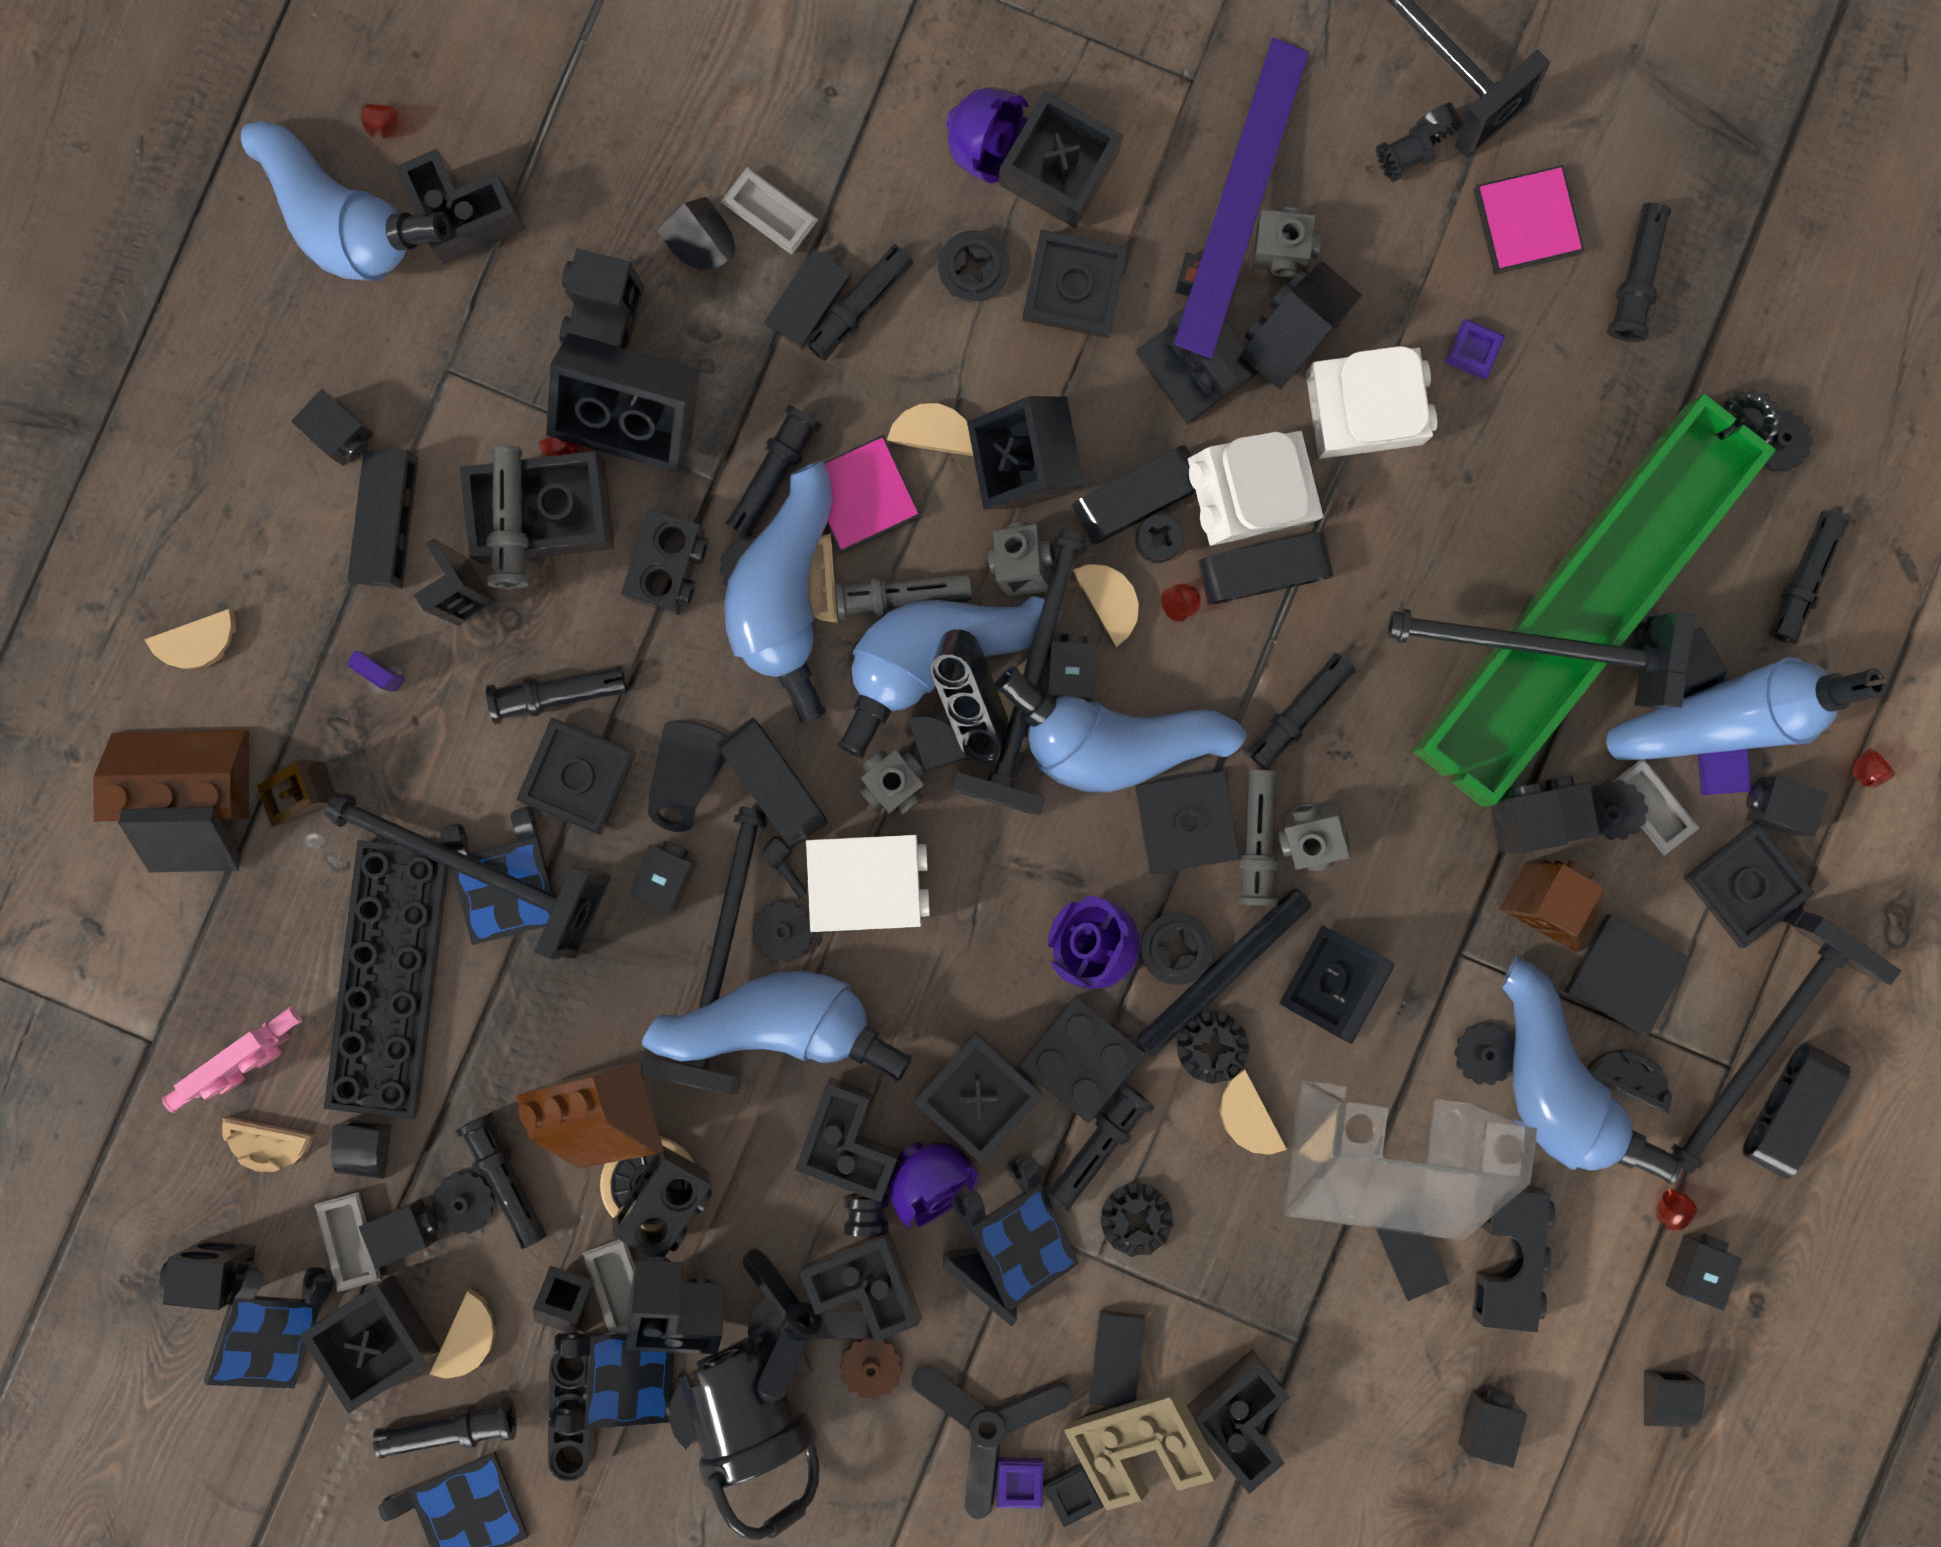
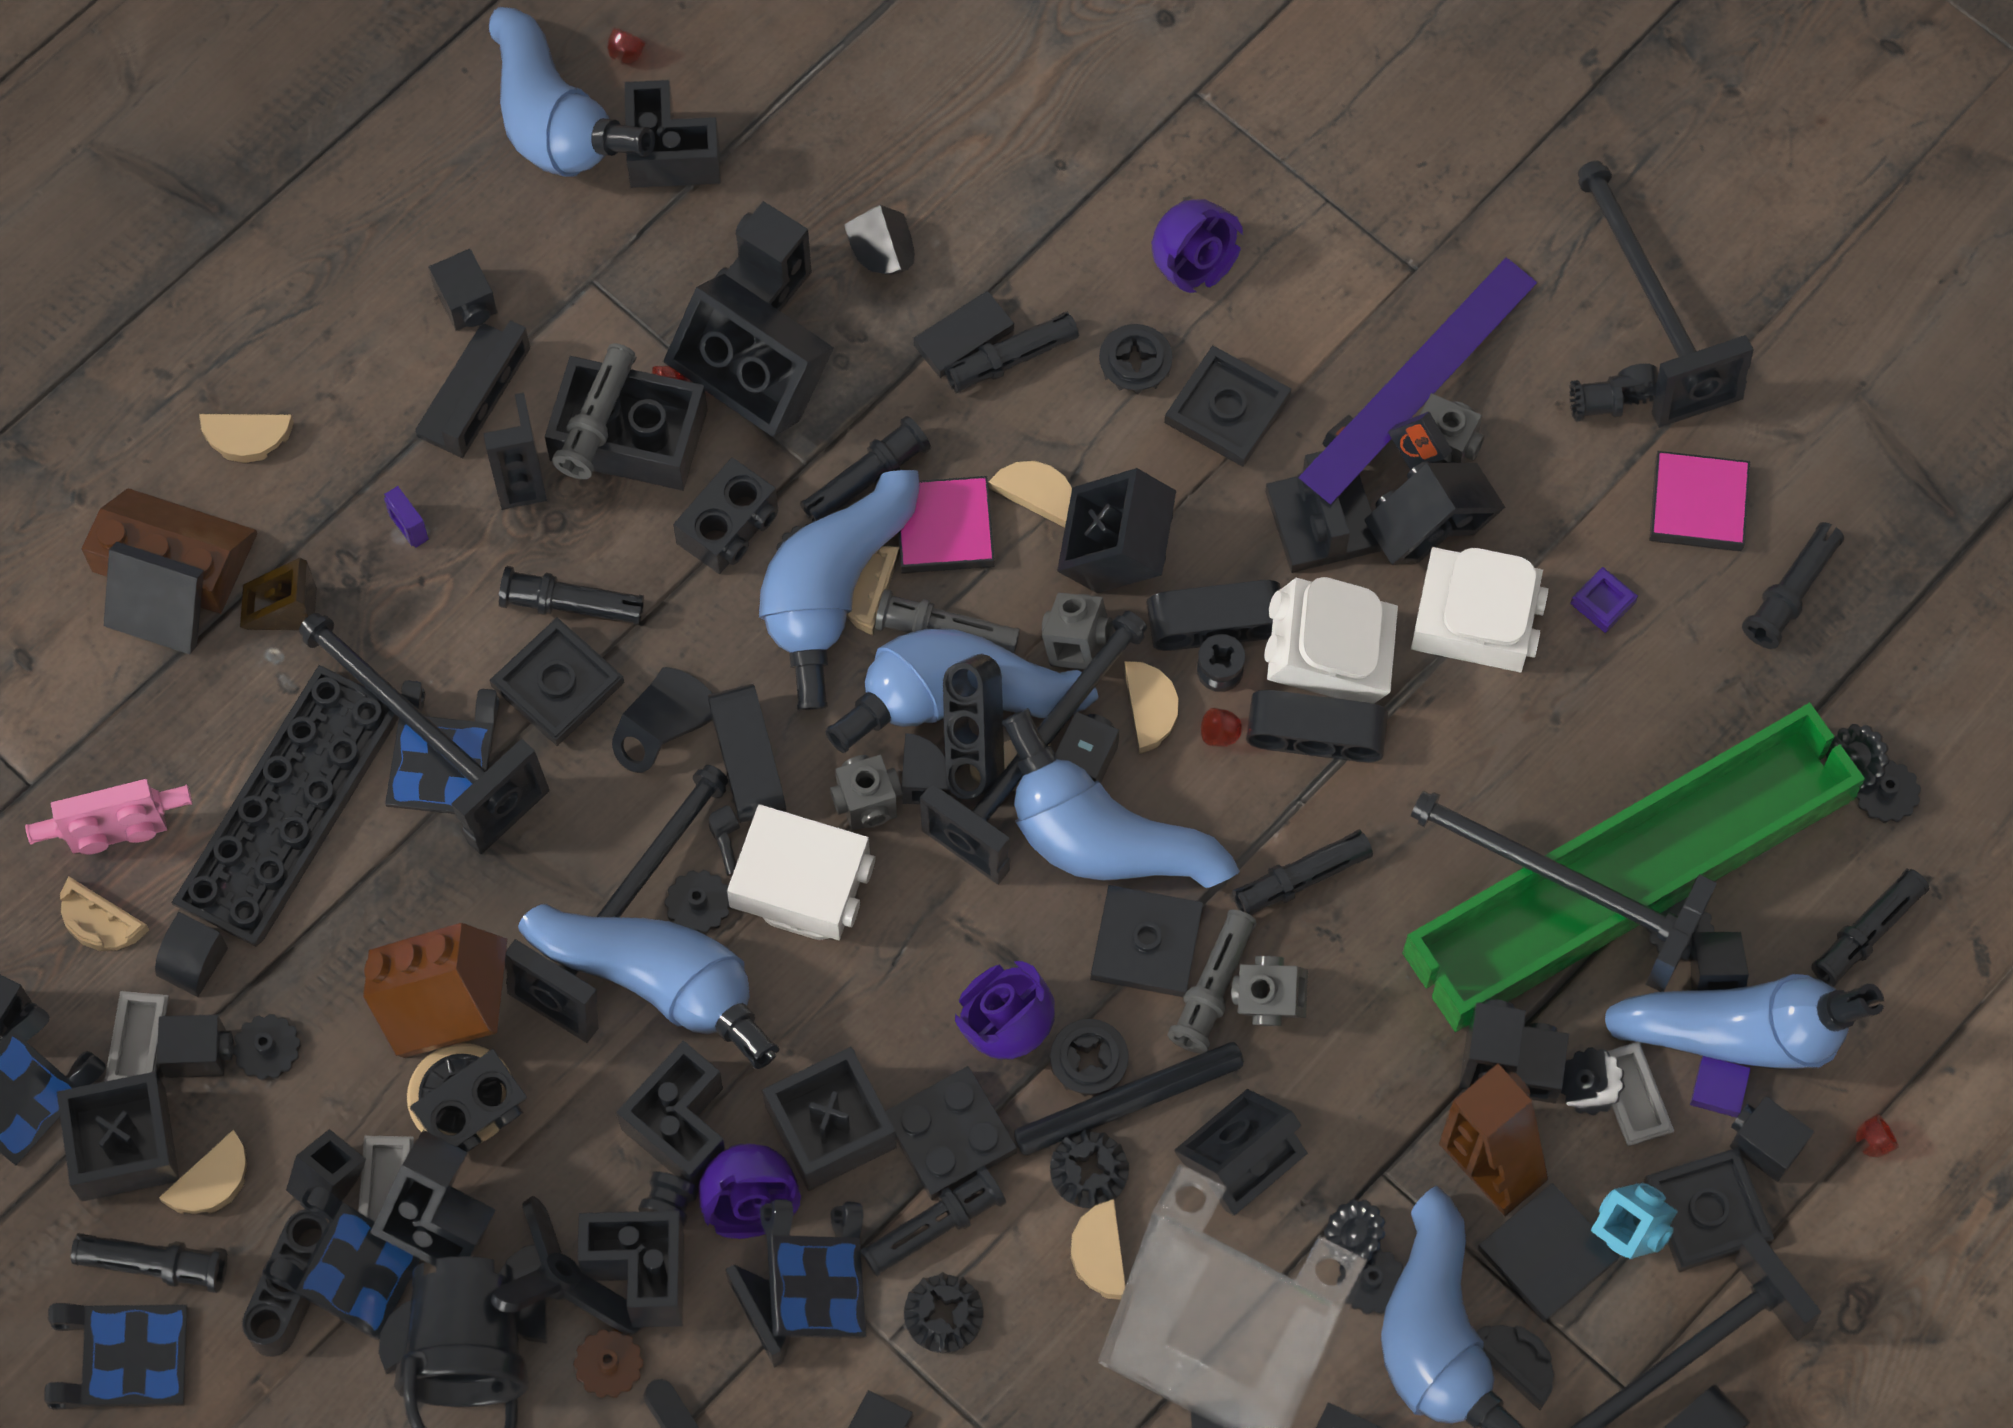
camera: 20 degrees right, 20 degrees down
(493, 1160) = (316, 1013): black pin -> none
(663, 876) = (602, 802): black brick -> none
(769, 210) = (959, 244): light grey tile -> none
(1060, 159) = (1255, 289): black brick -> none
(1269, 263) = (1420, 440): none -> tile
(1460, 1022) = (1356, 1228): none -> black piece
(1699, 929) = (1635, 1220): none -> medium azure brick

